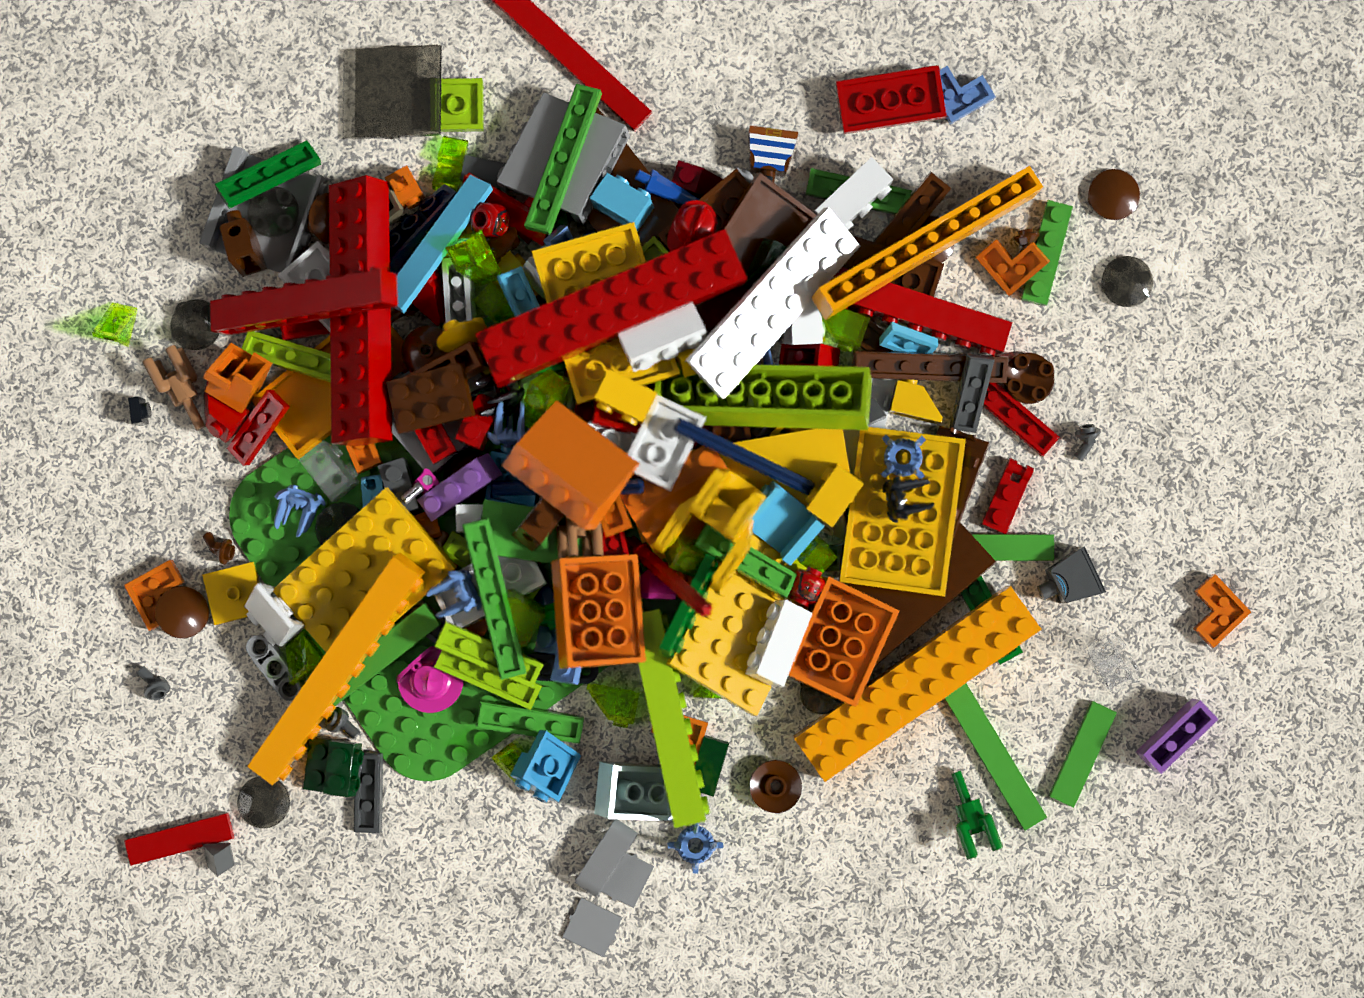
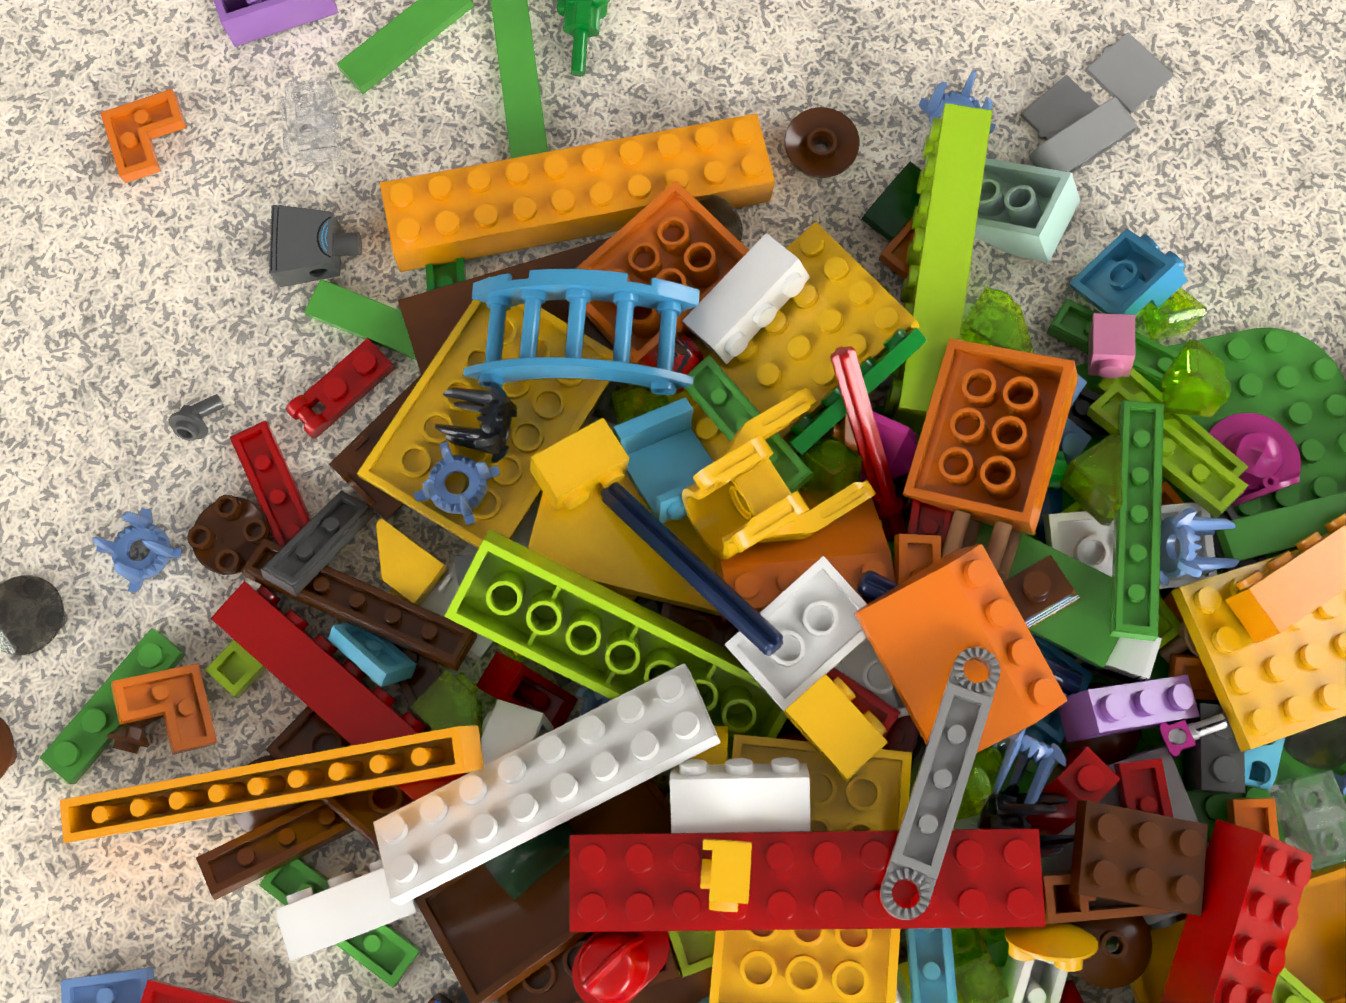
camera: 155 degrees left, 10 degrees down
(483, 704) = (1195, 382): none -> clear neon green slope
(542, 712) = (1111, 345): none -> bright pink brick
(559, 385) = (940, 783): none -> light grey plate
(655, 290) = (726, 873): none -> yellow brick
(880, 596) = (579, 288): none -> dark azure fence
(986, 300) = (235, 669): none -> lime plate
(1065, 346) = (154, 539): none -> medium blue piece

